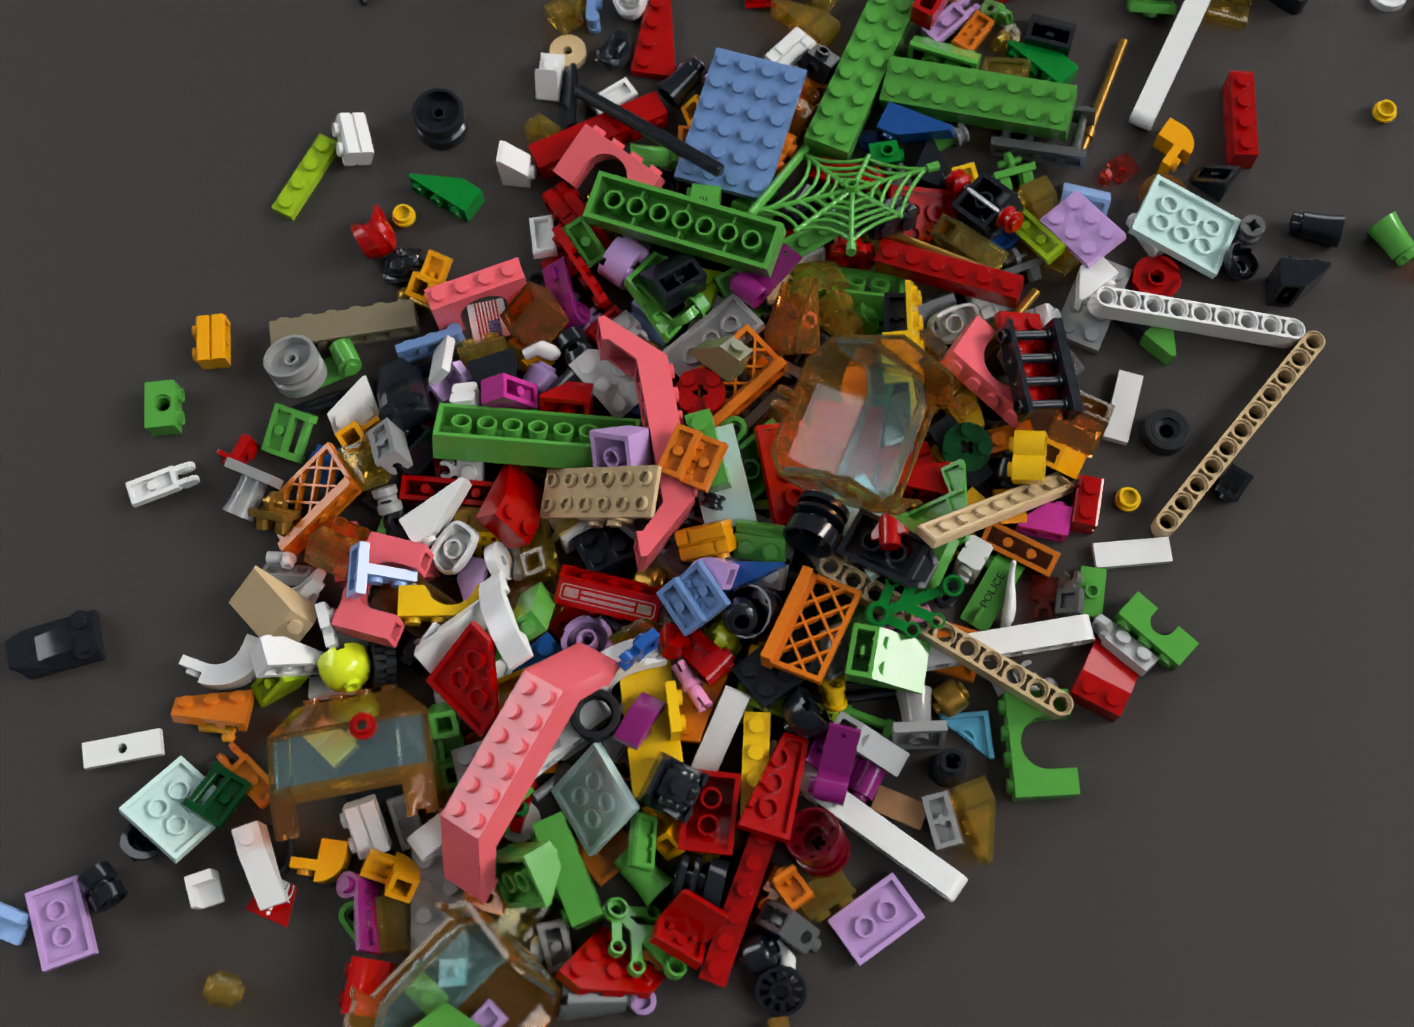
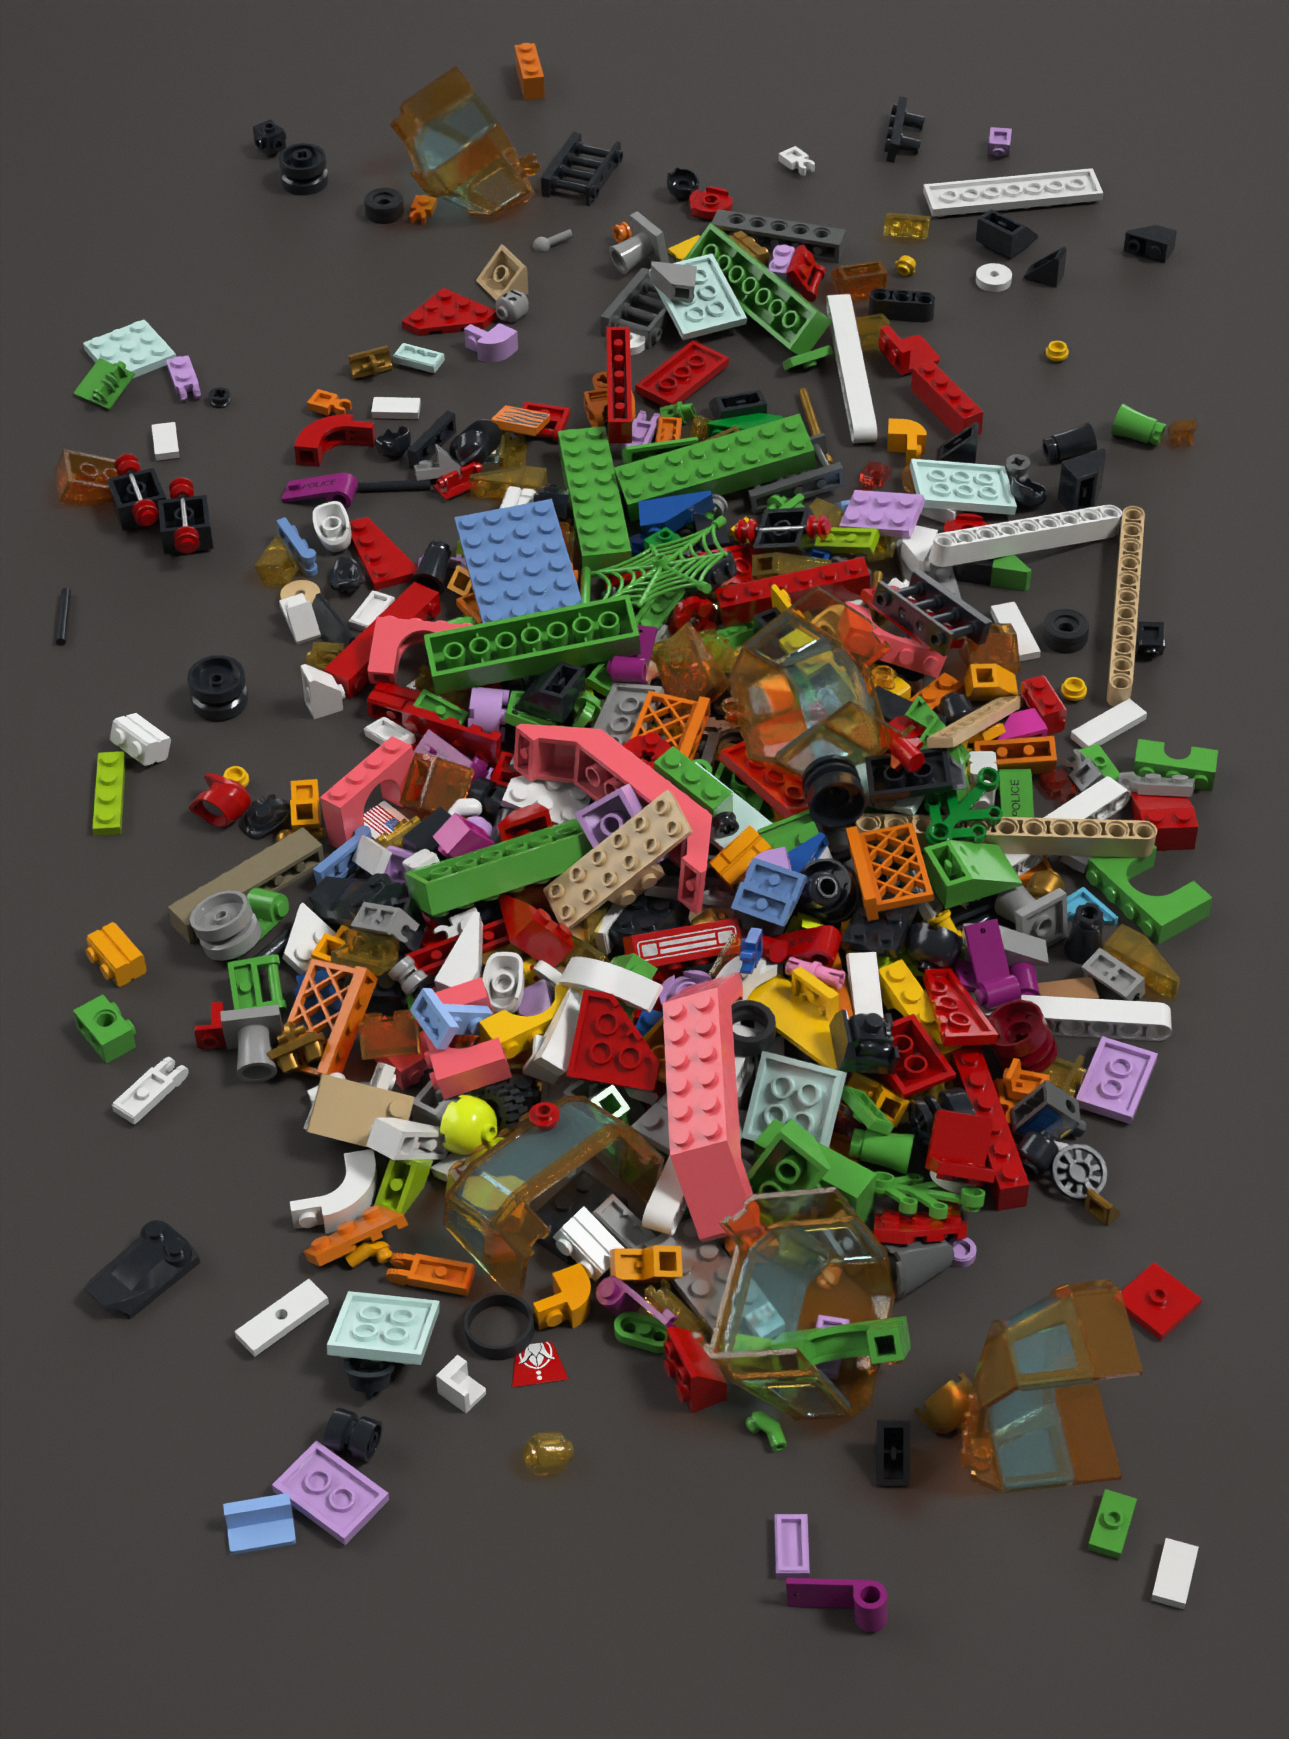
camera: 35 degrees left, 25 degrees down
(224, 798) = (427, 1293): dark green plate -> none
(259, 864) = (506, 1321): white slope -> none
(324, 615) = (426, 1091): white plate -> none
(452, 193) = (269, 741): green slope -> none
(638, 721) = (792, 1013): magenta slope -> none
(649, 130) = (436, 604): black axle -> none
(692, 457) = (691, 782): orange slope -> none
(723, 356) = (651, 714): olive slope -> none
(967, 432) = (907, 691): dark green plate -> none
(1009, 605) = (1040, 801): white animal -> none
(1029, 457) = (971, 681): yellow brick -> none
(1246, 45) = (905, 352): none -> red bracket

